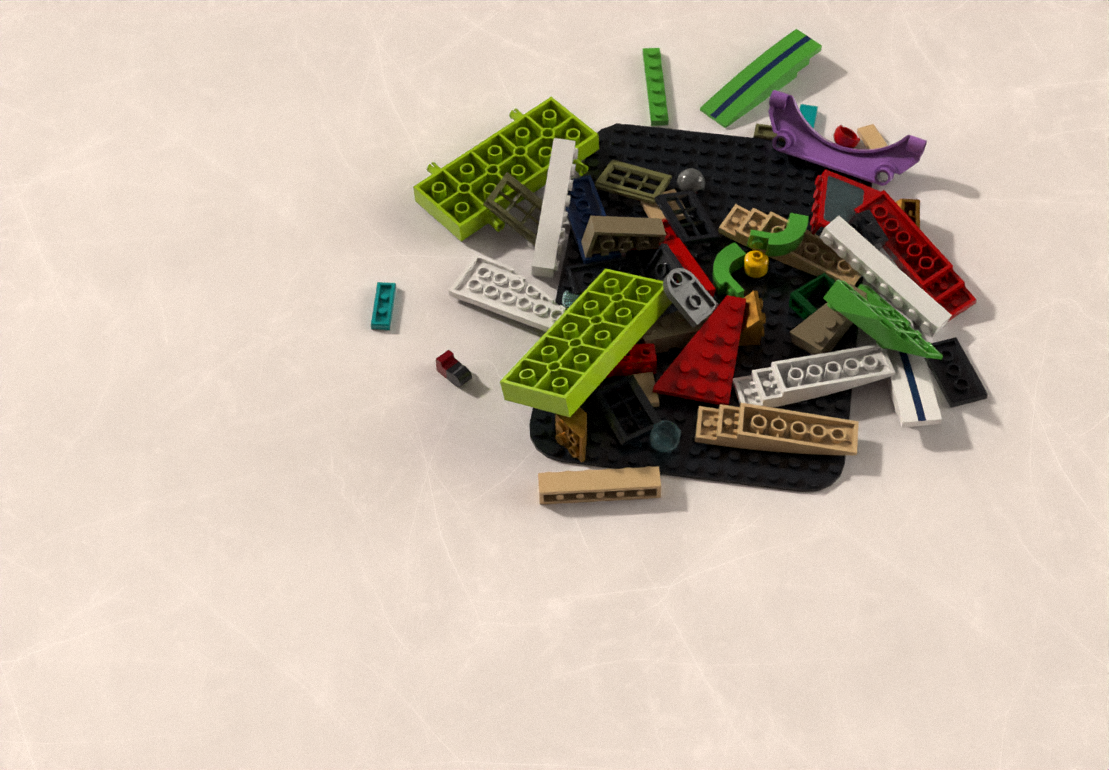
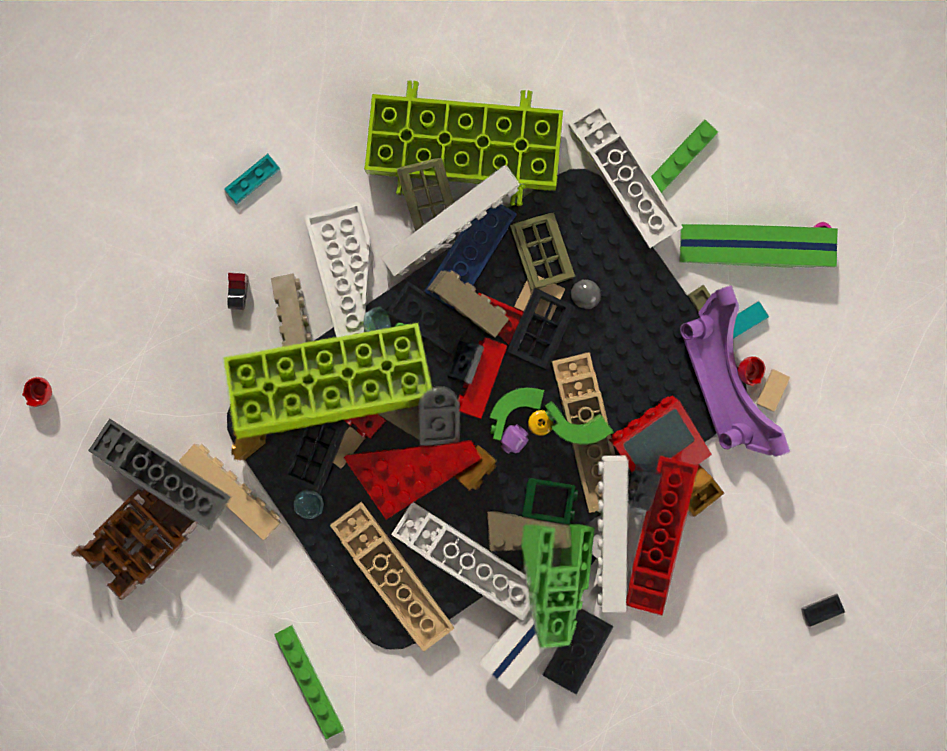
camera: 40 degrees right, 35 degrees up
(379, 546) = (37, 391): none -> red hair
(503, 342) = (290, 310): none -> dark tan wedge
(535, 507) = (159, 474): none -> dark grey slope
(569, 528) = (125, 524): none -> reddish brown piece
(633, 105) = (625, 175): none -> white slope
(751, 283) = (514, 439): none -> medium lavender head
(805, 551) = (309, 682): none -> bright green plate
(1065, 219) = (823, 610): none -> black tile

